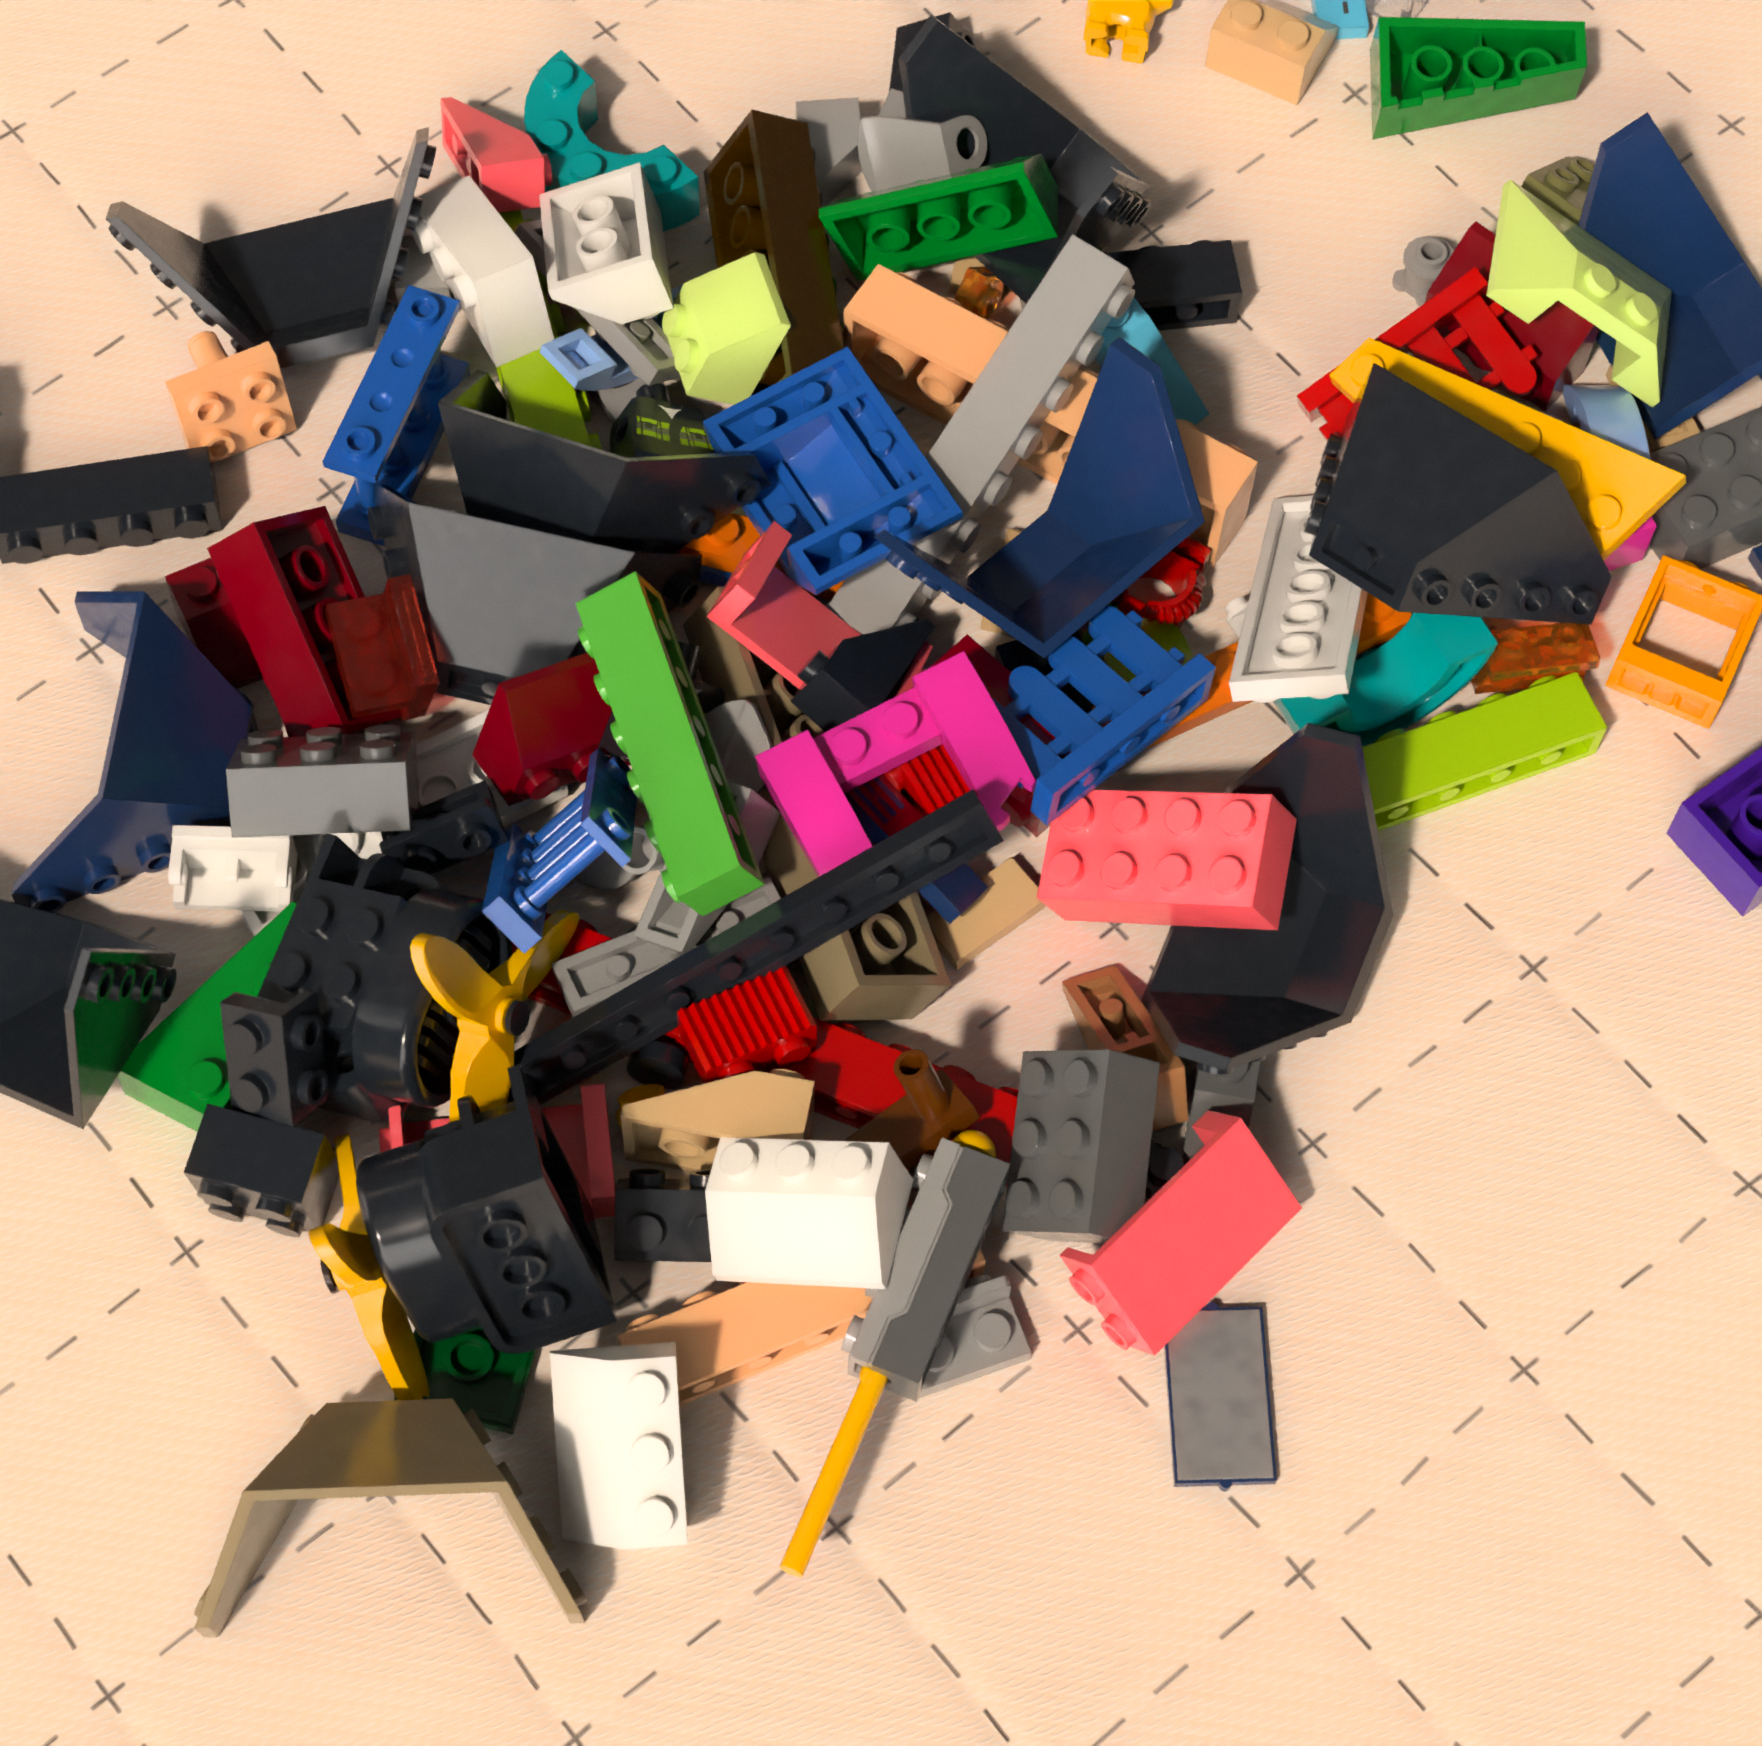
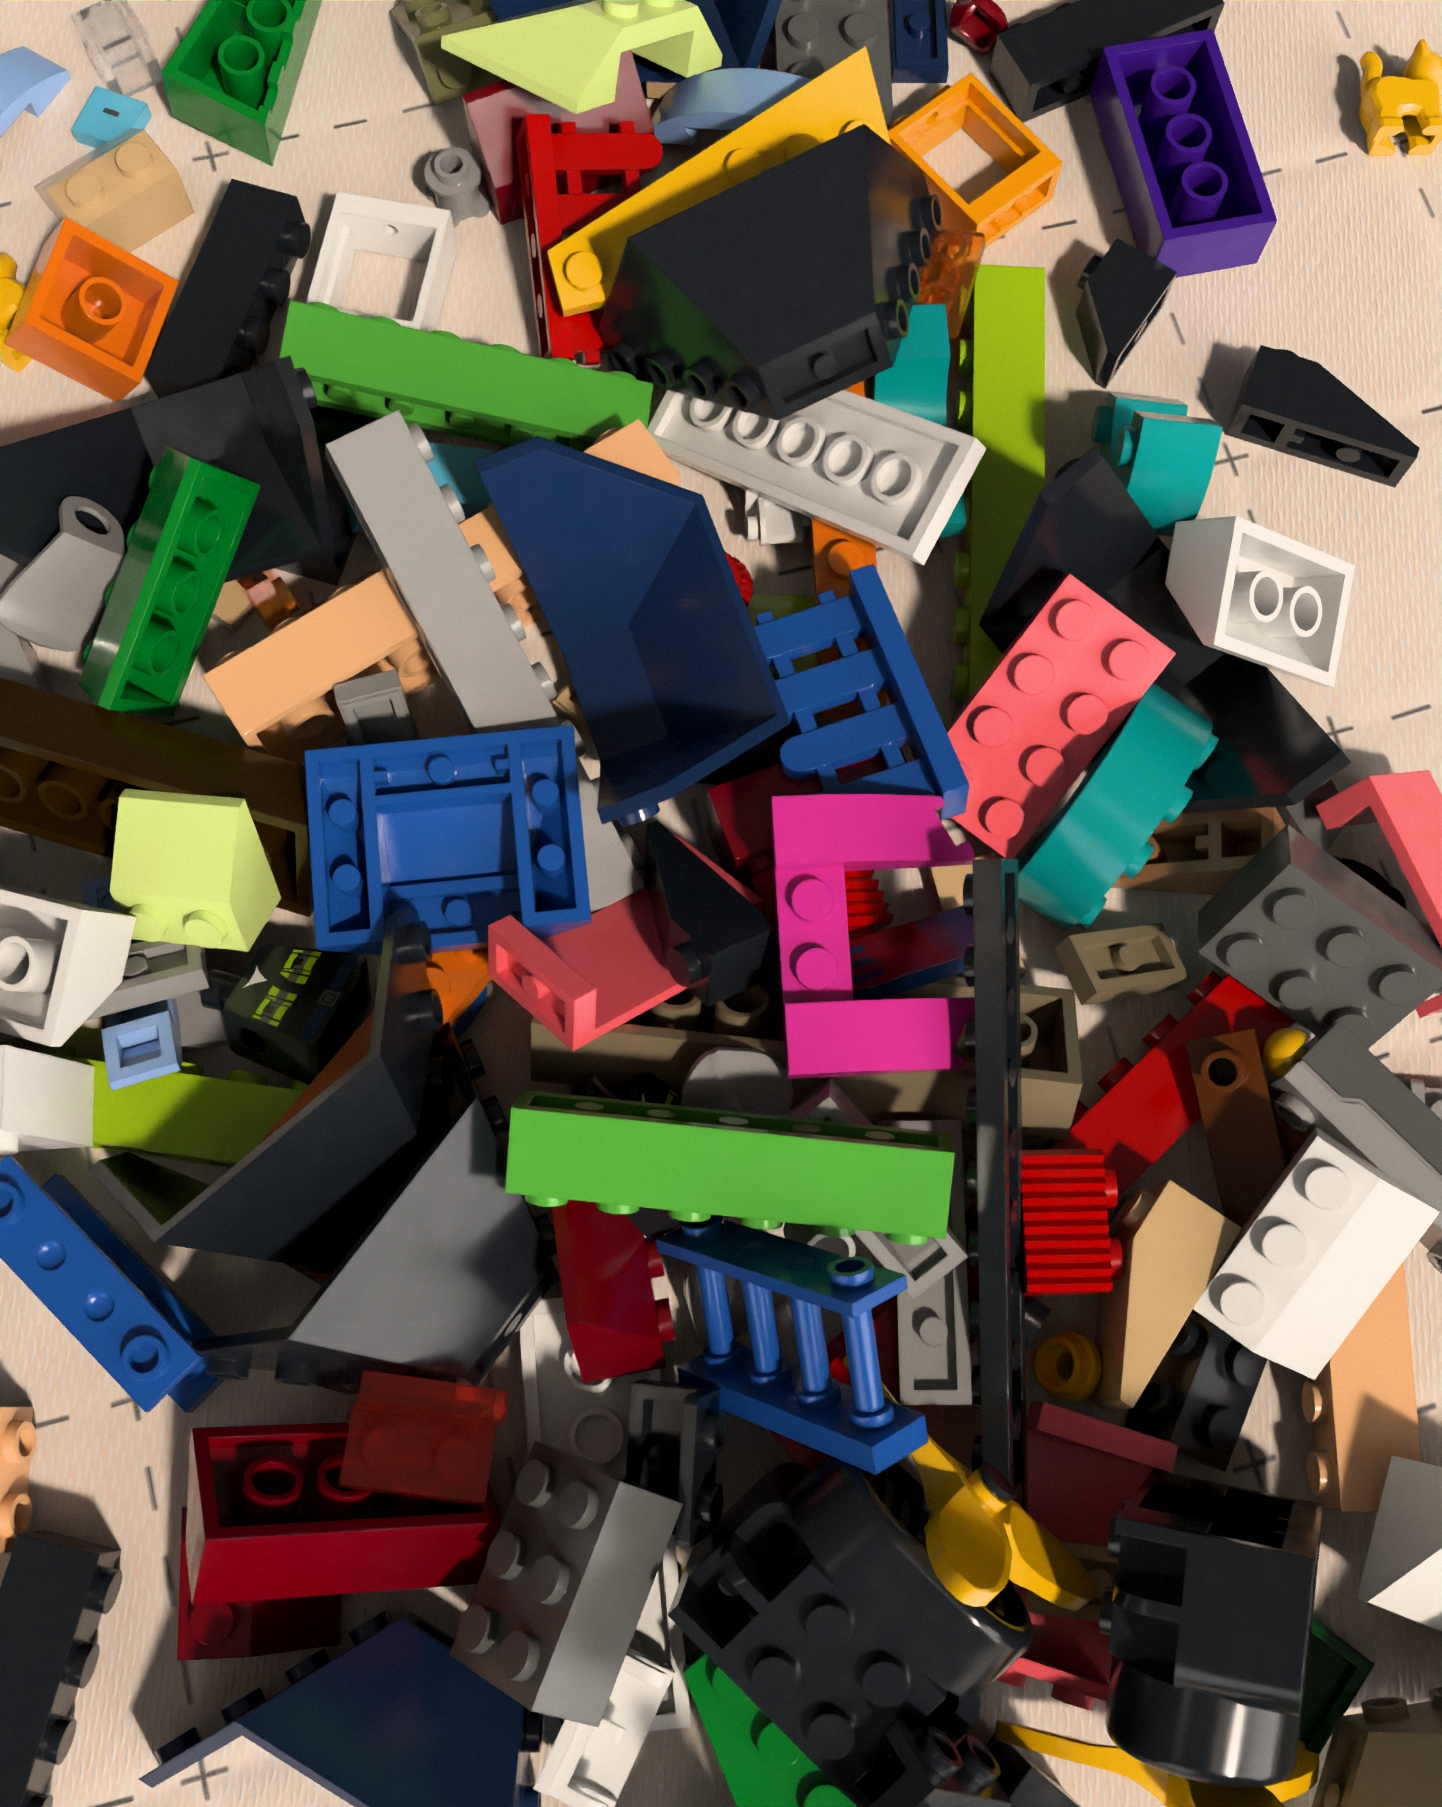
camera: 65 degrees left, 10 degrees up
(920, 399) = (376, 709): none -> light grey tile
(995, 1019) = (1121, 963): none -> dark tan plate
(1130, 935) = (1115, 811): none -> teal brick
(1148, 69) = (92, 311): none -> orange brick
(1229, 339) = (455, 383): none -> bright green brick
(1230, 157) = (231, 290): none -> black brick
(1300, 215) = (414, 233): none -> white window
(1369, 1000) = (1261, 595): none -> white slope
(1449, 877) = (1158, 455): none -> teal brick
(1601, 990) = (1315, 417): none -> black slope
(1616, 813) = (1119, 305): none -> black slope

